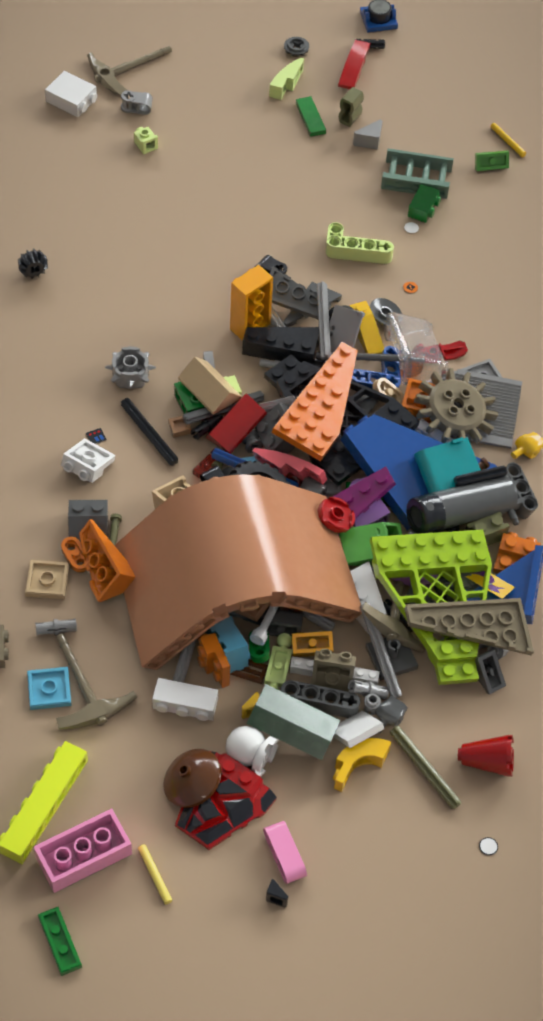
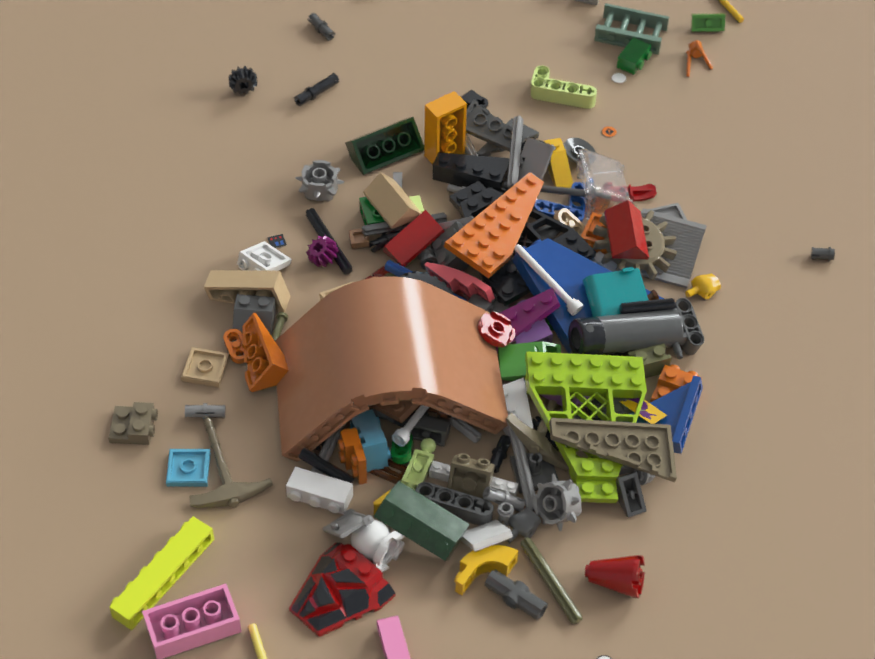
camera: 10 degrees right, 5 degrees down
(59, 489) = (226, 284): none -> tan wedge
(102, 195) = (321, 26): none -> dark grey pin
(104, 270) = (311, 92): none -> black pin
(145, 444) = (322, 251): none -> magenta gear
(187, 674) = (324, 466): none -> black axle
(190, 322) = (385, 145): none -> dark green slope
(192, 778) = (312, 564): reddish brown dish -> none
(221, 732) = (348, 523): none -> light grey door
(307, 643) = (452, 446): light orange brick -> none
(355, 640) = (500, 452): none -> black axle
(394, 786) = (516, 594): none -> dark grey piece
(407, 481) = (573, 305): none -> white piece
(422, 688) = (557, 502): none -> light grey brick
(448, 399) = (626, 232): none -> red slope
(485, 192) = (696, 50): none -> orange plant

